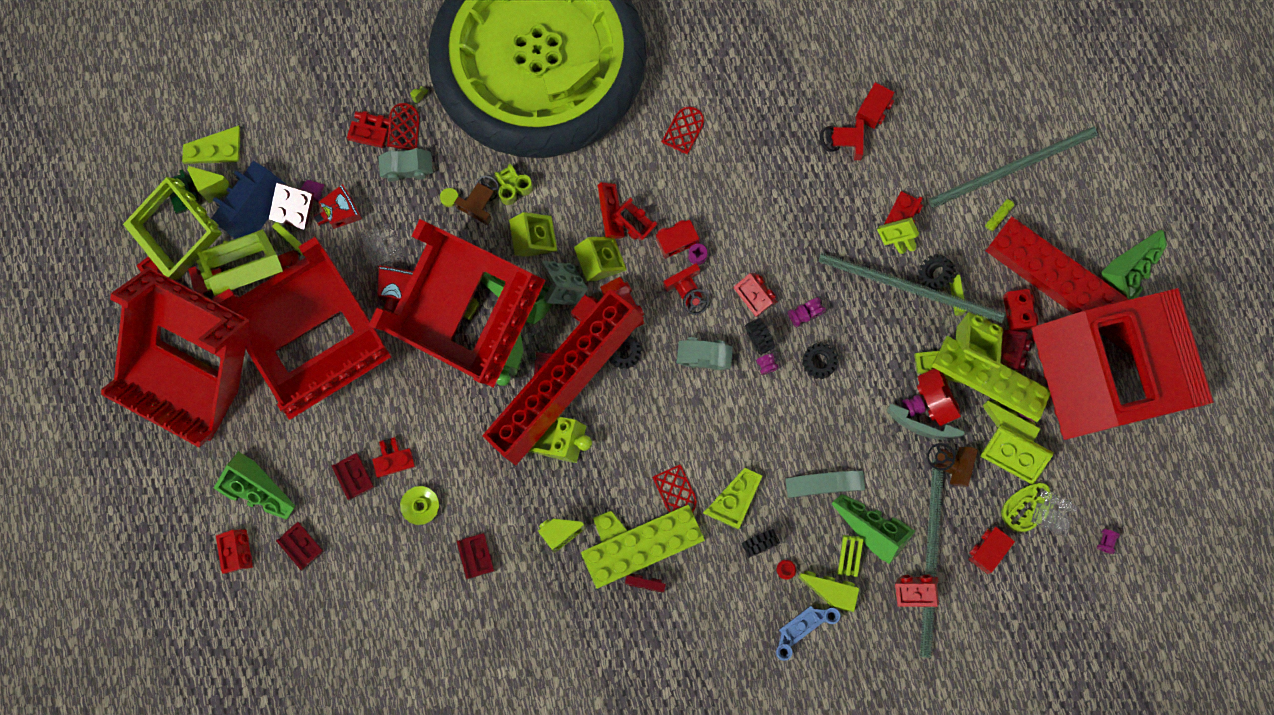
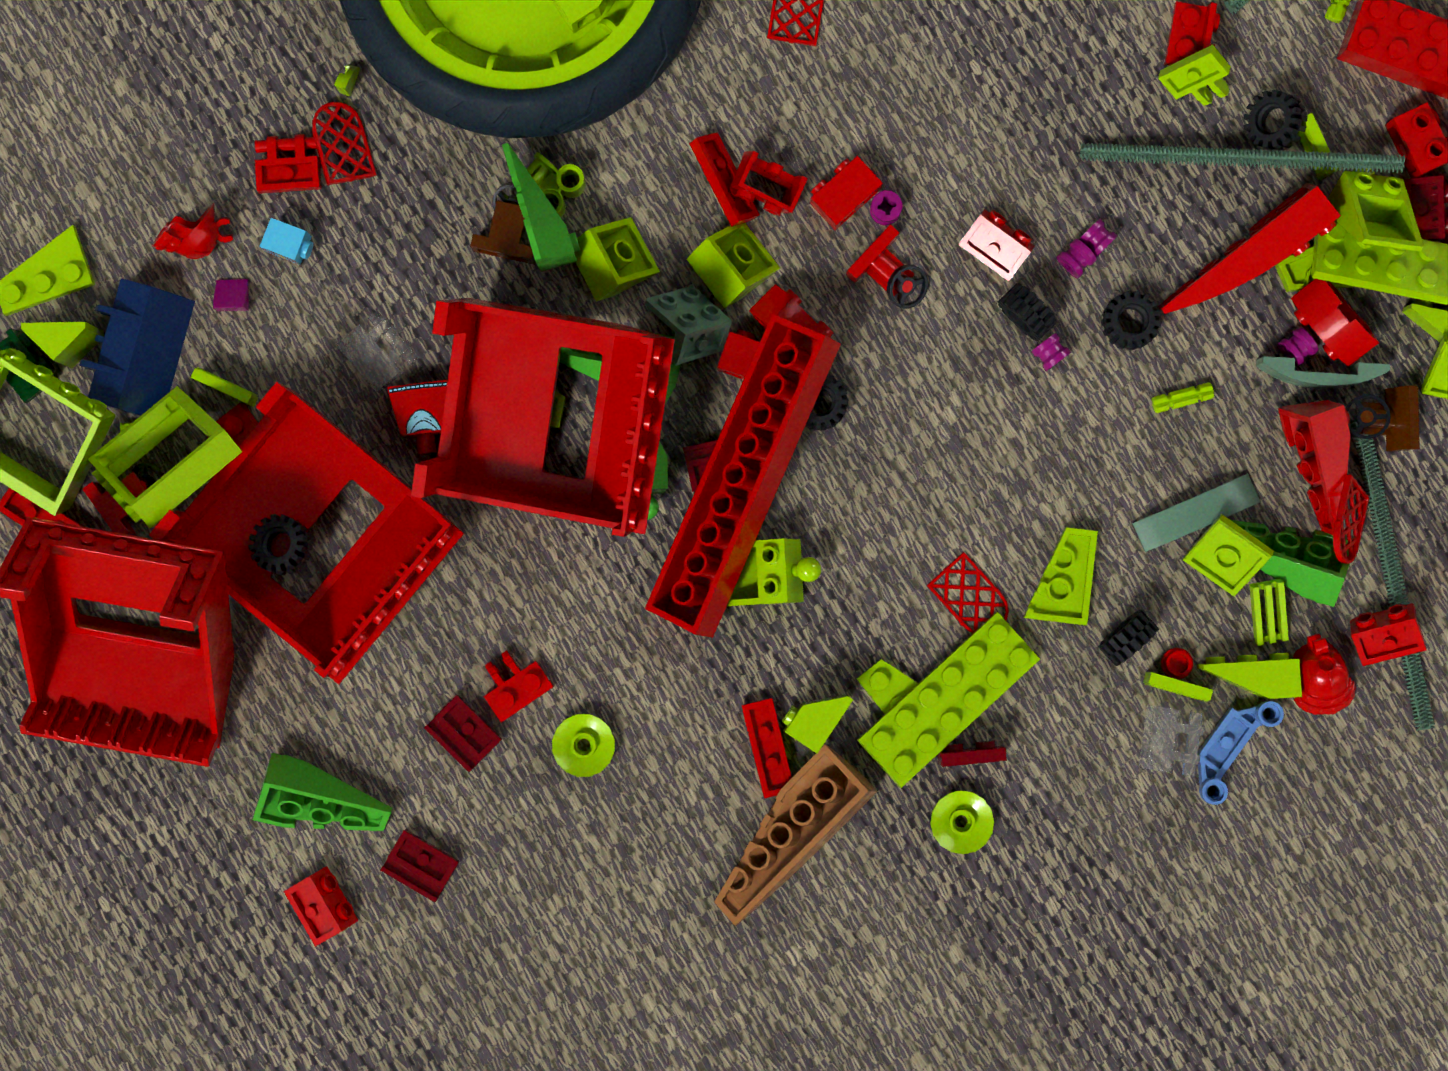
camera: 15 degrees left, 10 degrees up
(282, 324) = (263, 540): none -> black tyre
(291, 205) = (209, 332): plate -> none
(301, 152) = (192, 238): none -> red helmet
(337, 209) = (285, 314): red torso -> none
(353, 170) = (287, 241): none -> medium azure brick
(405, 164) = (368, 206): sand green brick -> none
(448, 197) = (456, 238): lime tile -> none
(475, 556) = (696, 794): dark red plate -> none
(497, 205) = (545, 228): none -> bright green wedge
(527, 542) = (767, 746): none -> red plate
(531, 592) = (797, 826): none -> medium nougat wedge
(617, 618) = (973, 834): none -> lime dish
(704, 354) = (948, 367): sand green brick -> none
(762, 611) = (1161, 738): none -> clear plate
(782, 583) = (1177, 686): none -> lime tile
(835, 513) = (1228, 555): none -> lime tile
(837, 414) = (1182, 397): none -> lime axle
(871, 606) = (1323, 678): none -> red helmet
(903, 517) = (1339, 533): none -> red window
(907, 341) = (1271, 241): none -> red wedge
(911, 462) = (1323, 445): none -> red wedge

